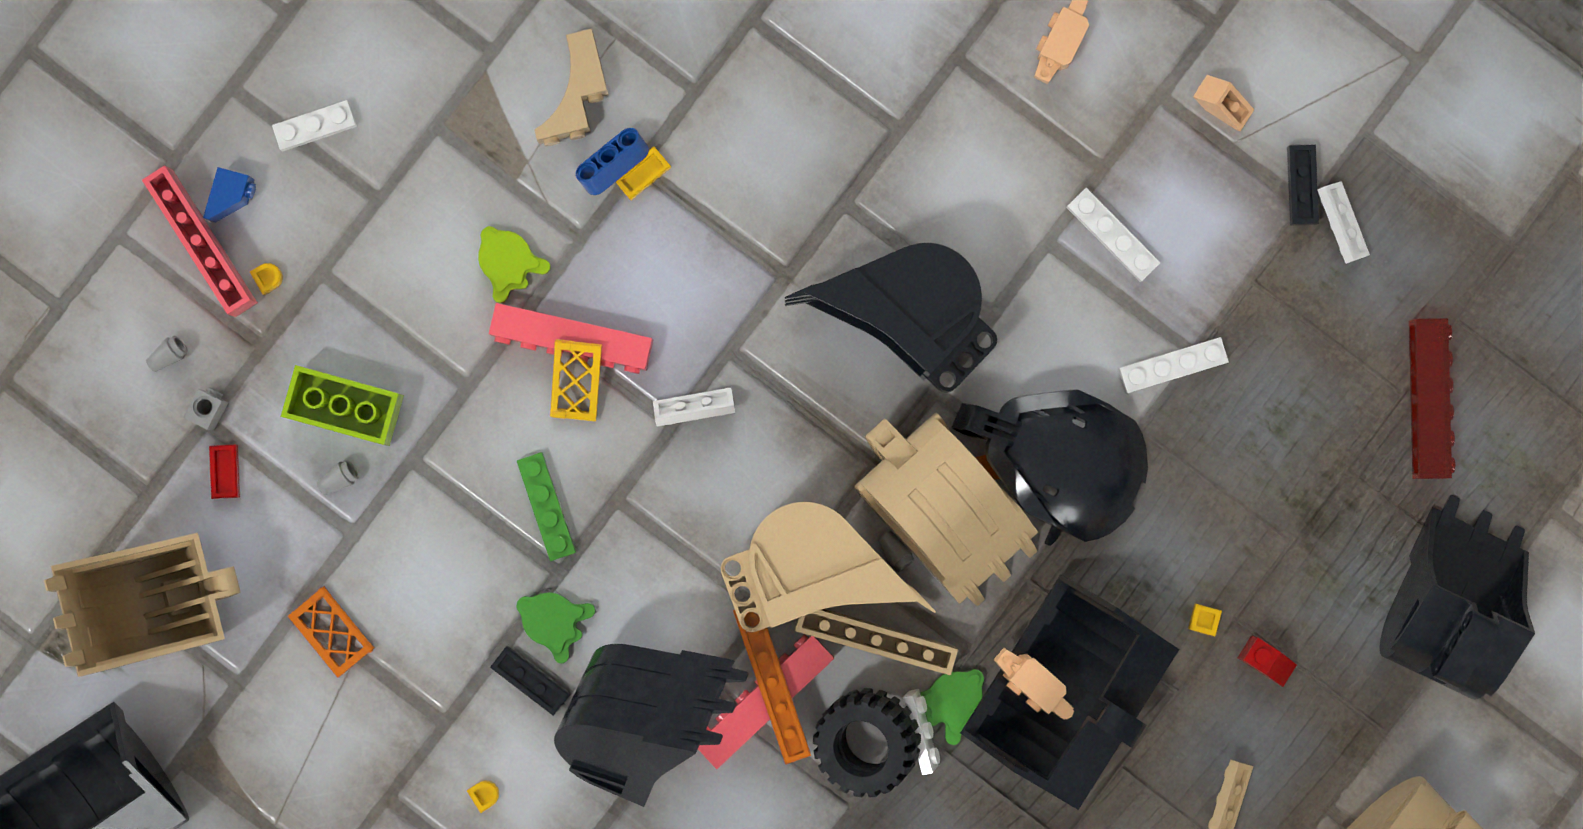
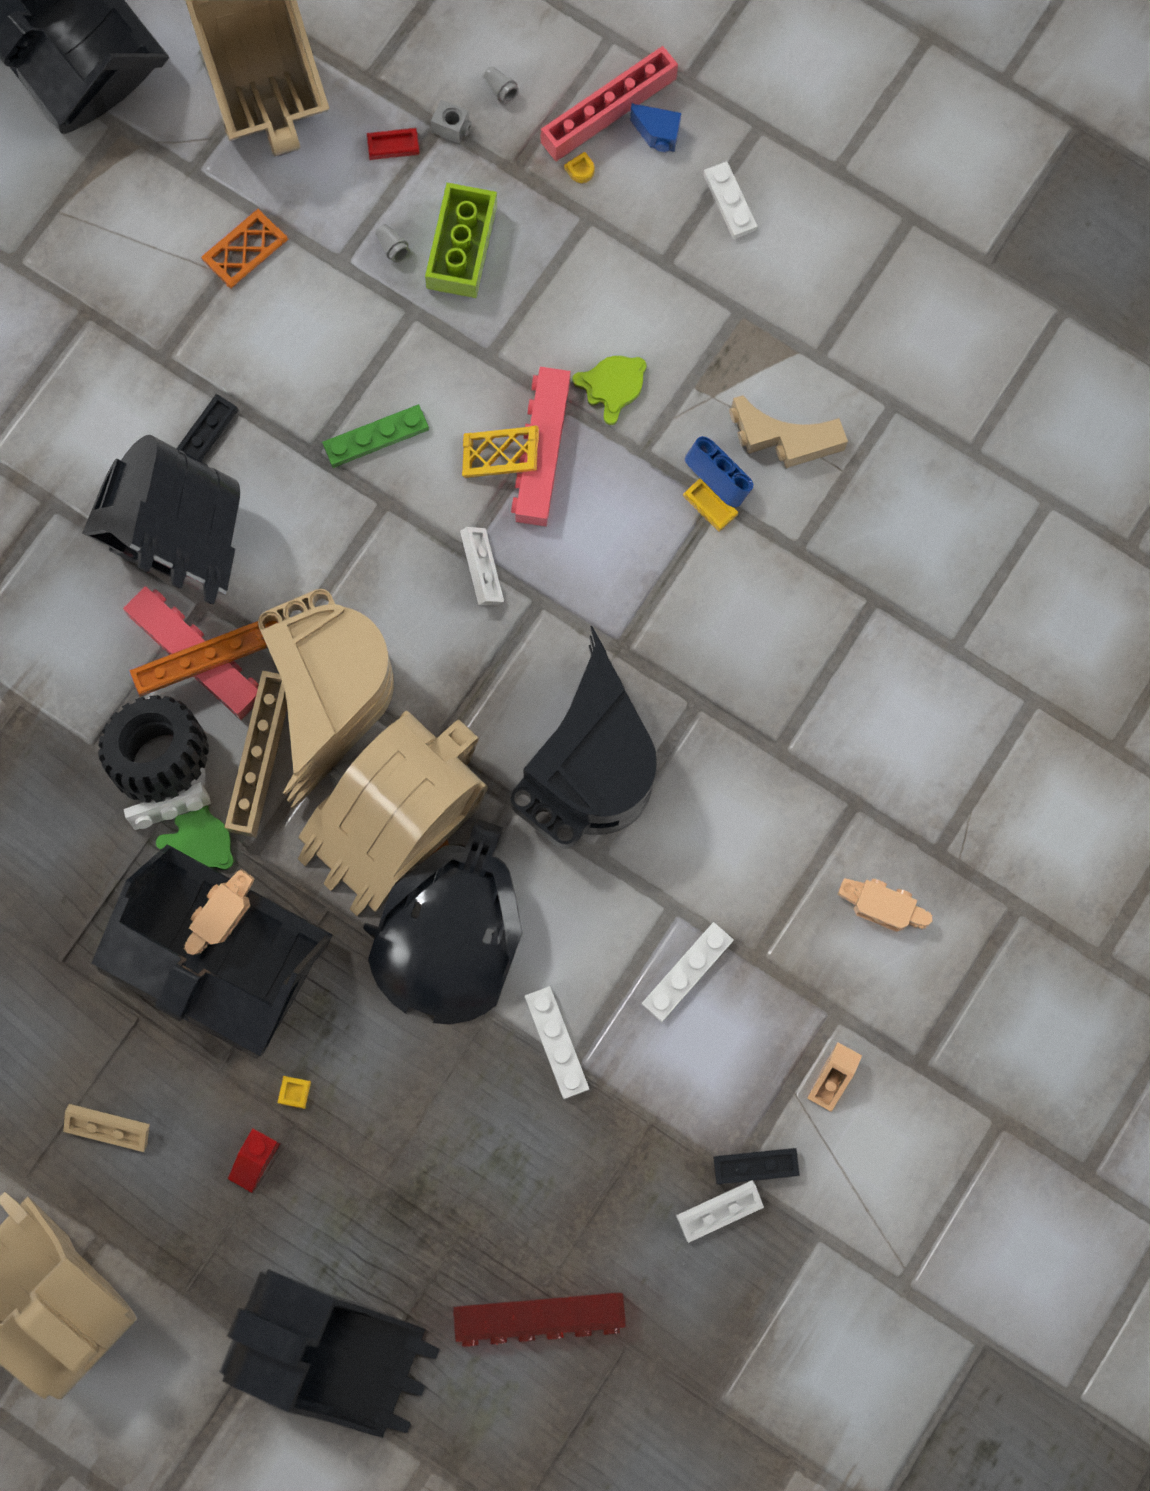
camera: 85 degrees right, 10 degrees down
(484, 794) = (92, 398): yellow tile -> none
(552, 621) = (264, 449): bright green tile -> none

